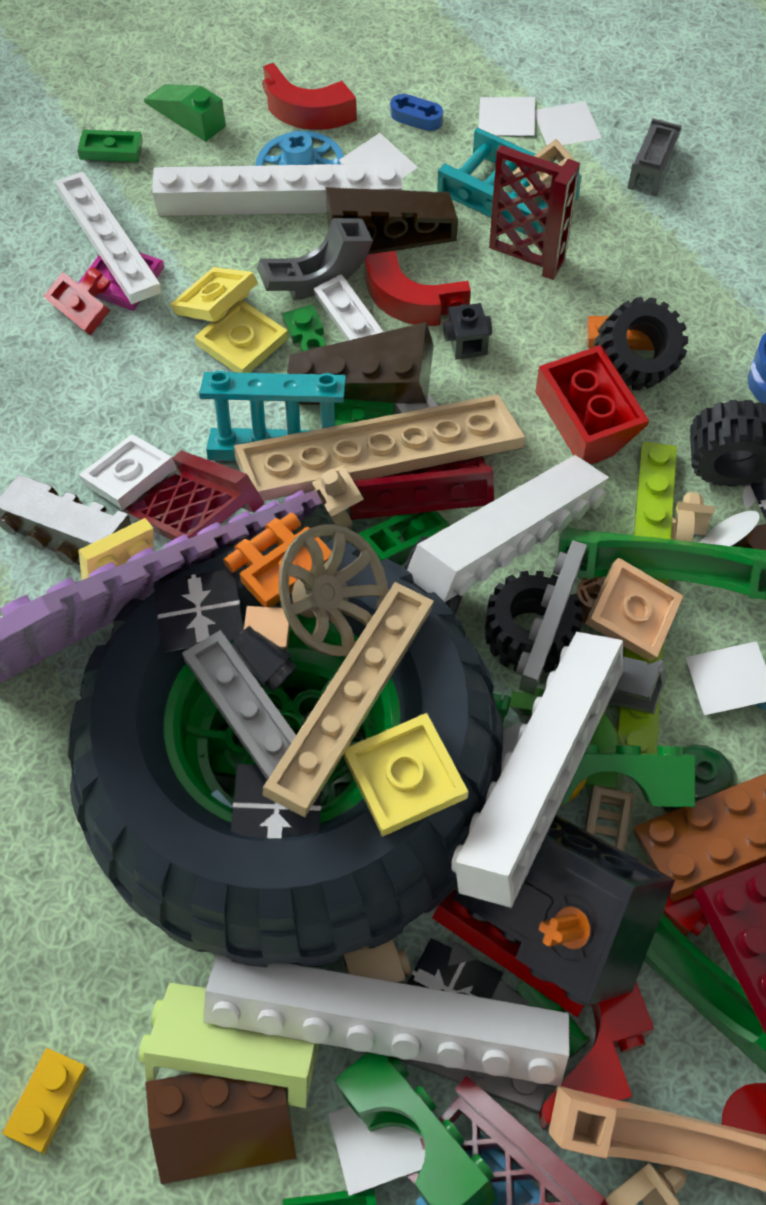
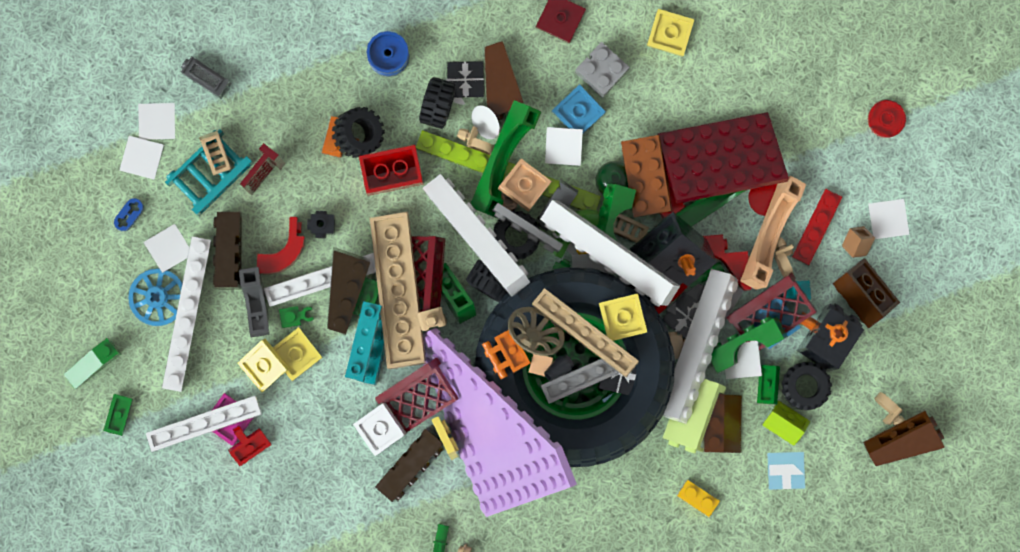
camera: 85 degrees left, 25 degrees up
(196, 608) = (524, 392): black sticker -> none
(308, 108) = (115, 283): red arch -> none

